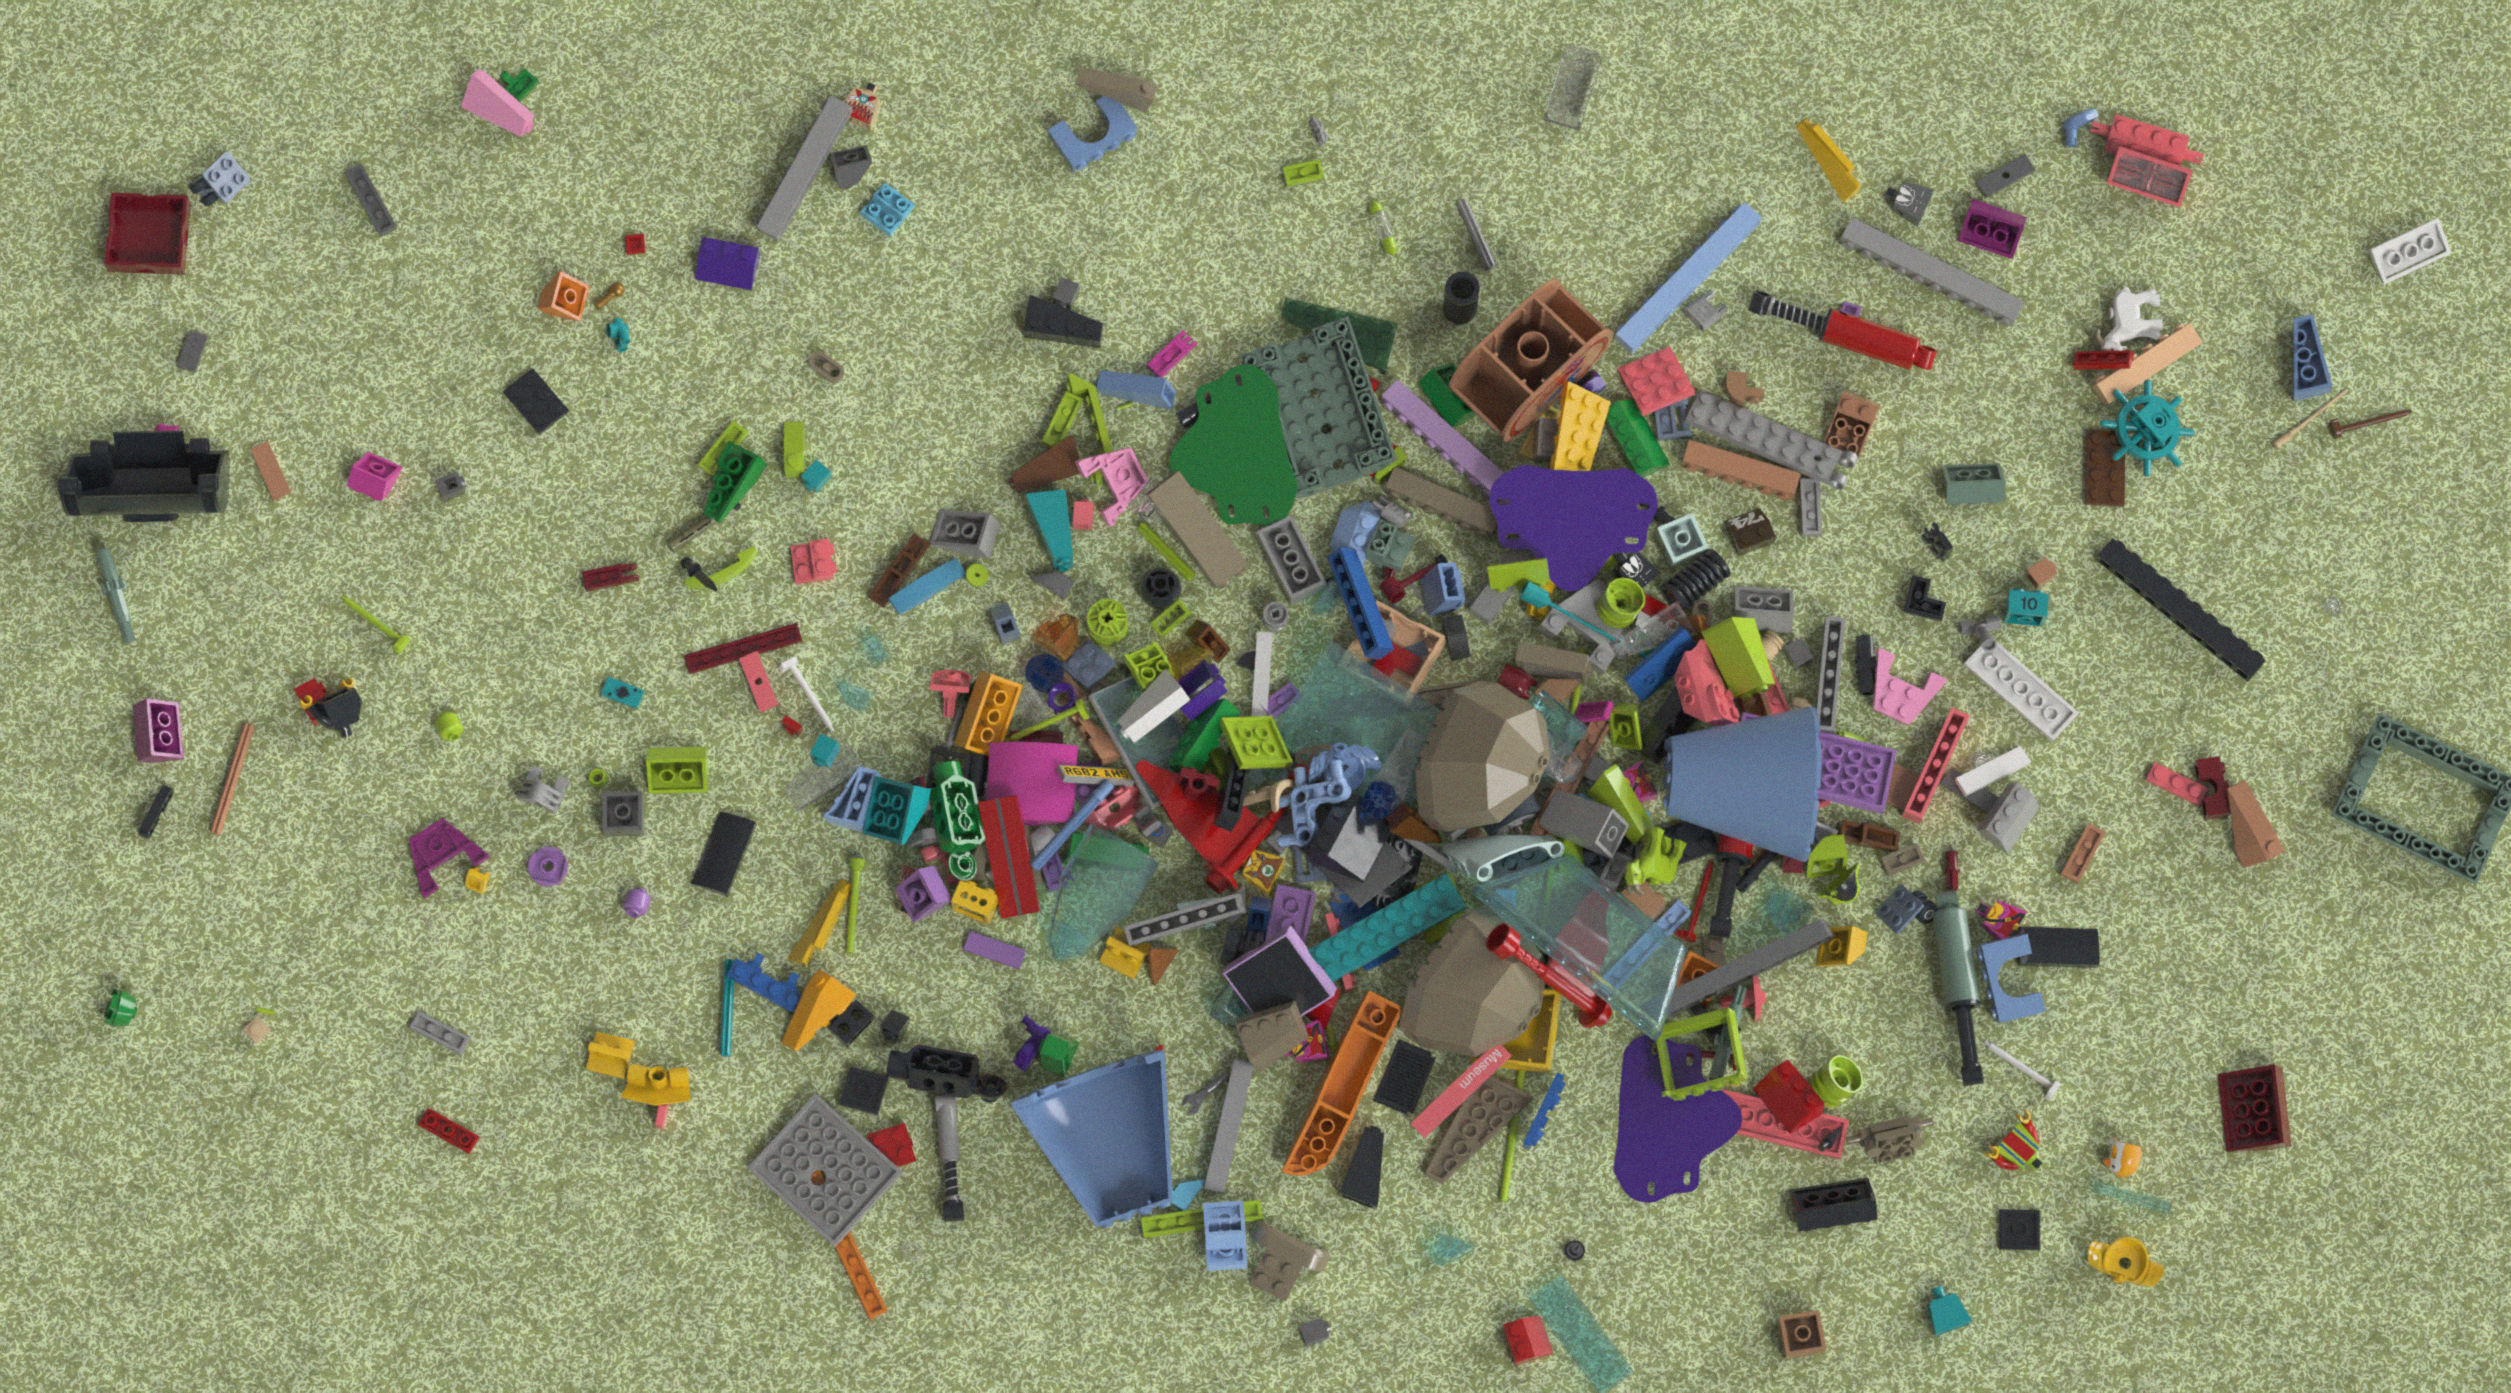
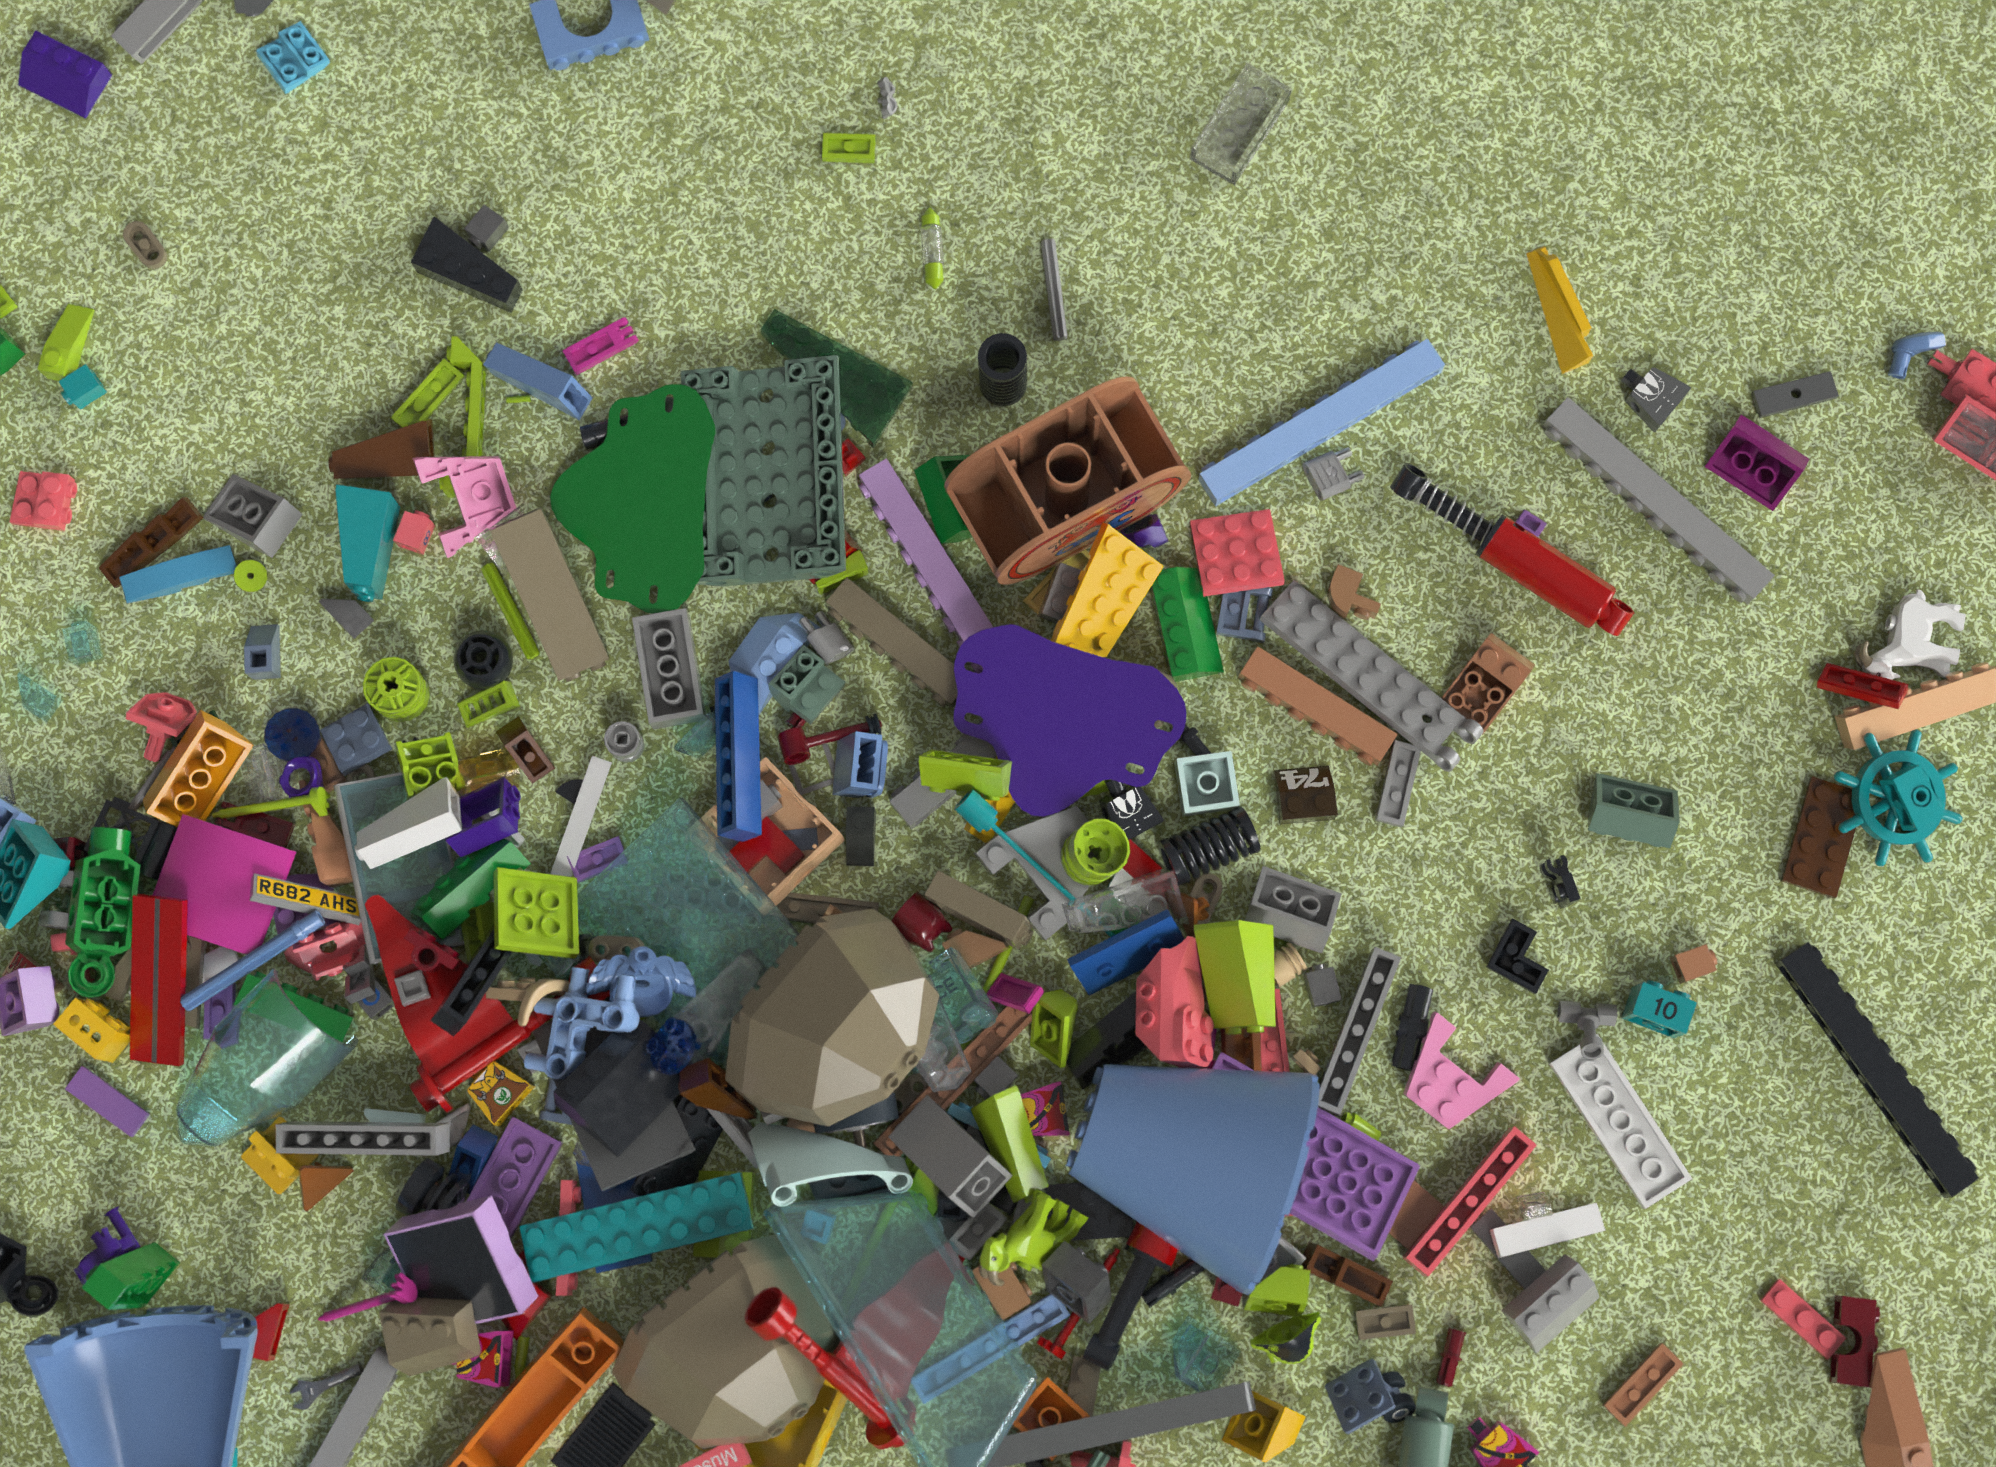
camera: 20 degrees right, 5 degrees up
(1059, 637) = (327, 690): clear orange slope -> none
(1187, 813) = (412, 988): none -> light grey tile
(1247, 1009) = (404, 1292): none -> dark pink piece
(1691, 884) = (1077, 1281): none -> flat silver brick

